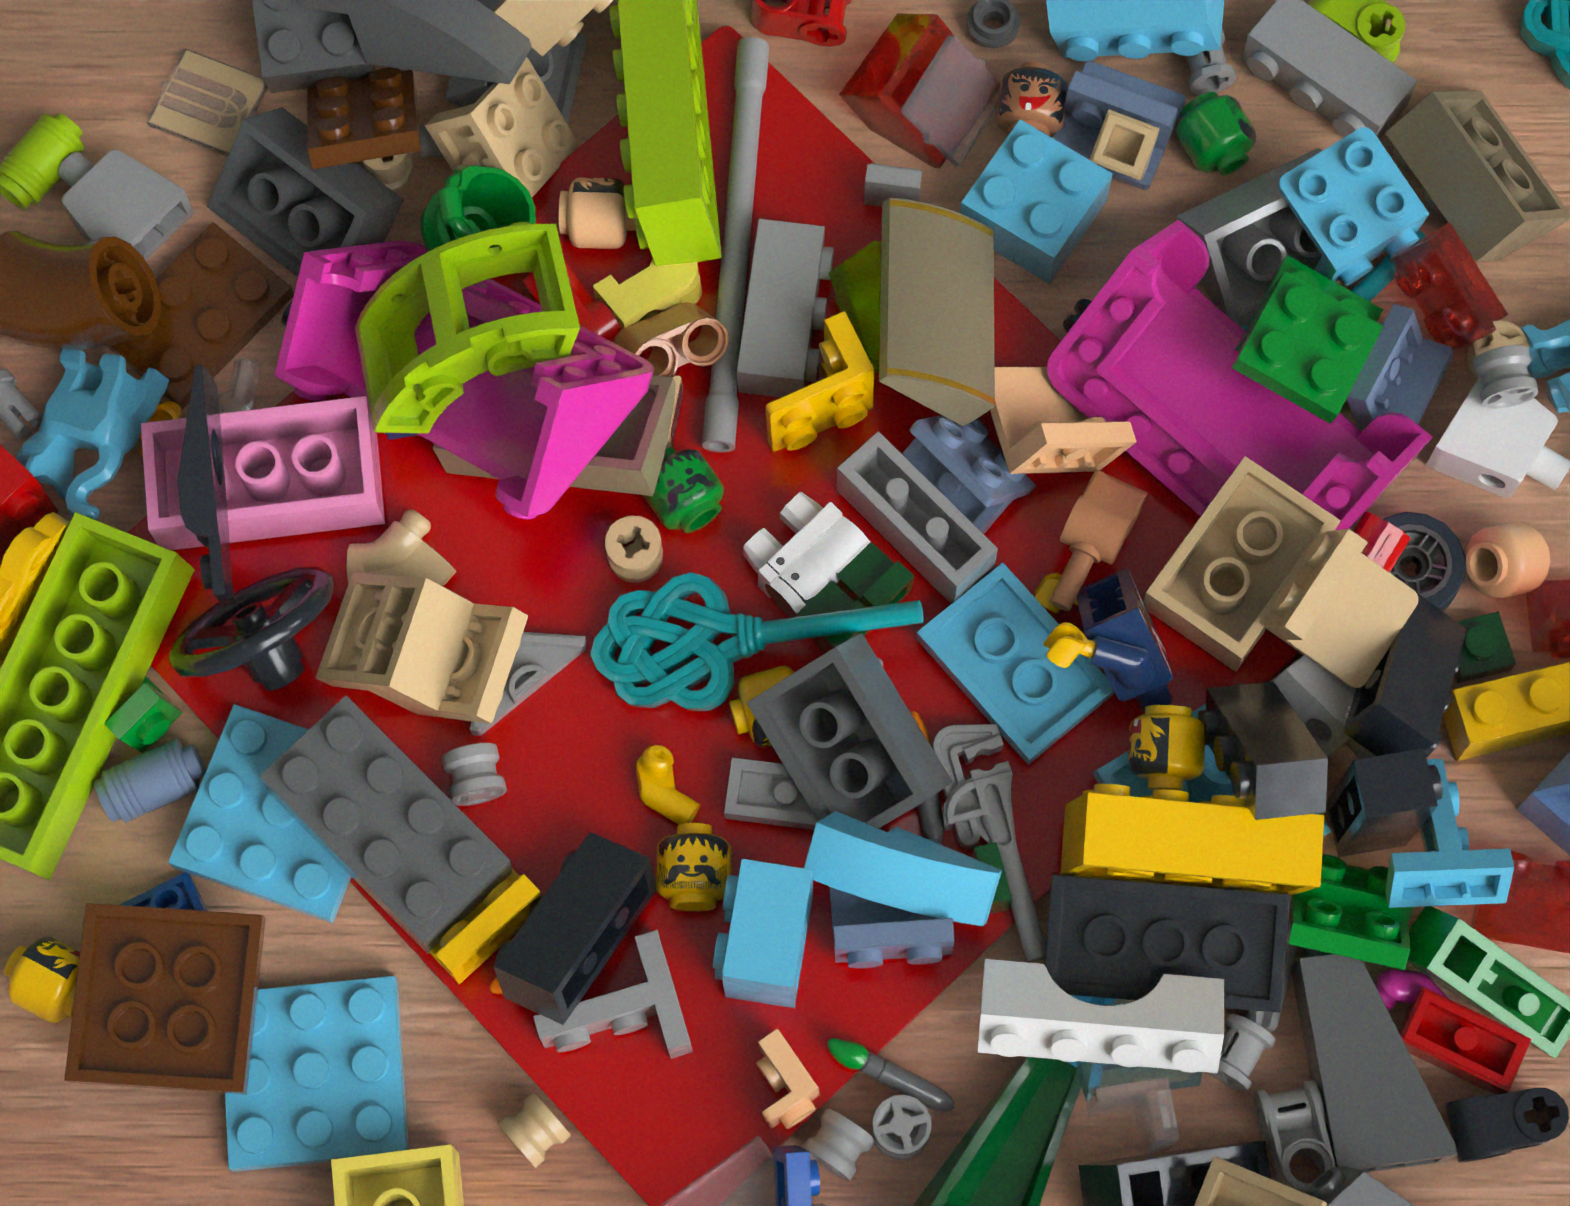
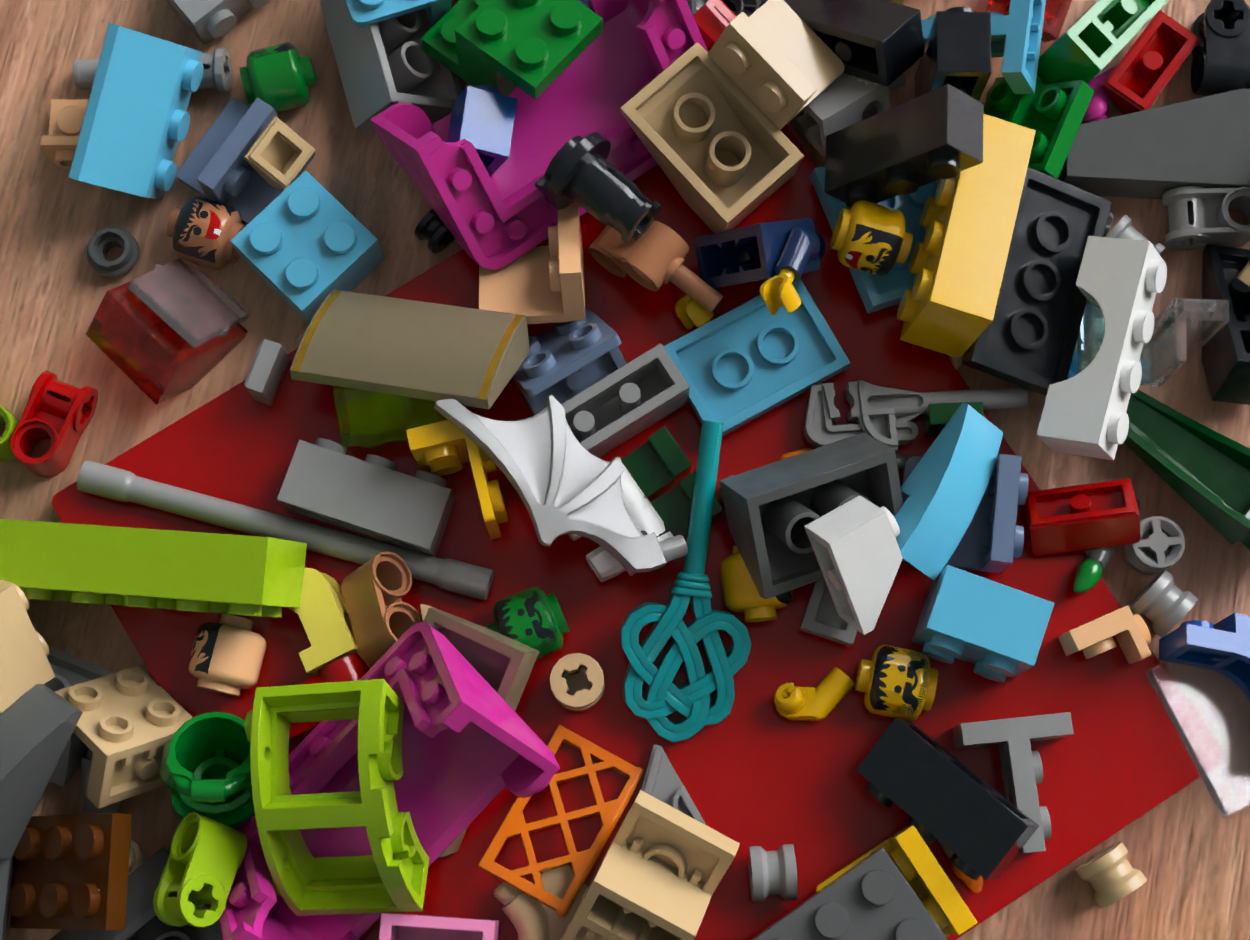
camera: 80 degrees left, 5 degrees up
(384, 223) = (199, 869): none -> lime piece
(533, 536) = (582, 861): none -> orange window
(807, 782) = (857, 558): none -> white slope
(823, 478) = (564, 483): none -> animal
(912, 1036) = (1082, 517): none -> red slope
(1156, 433) = (585, 177): none -> black piece
(1197, 329) = (486, 121): none -> brick

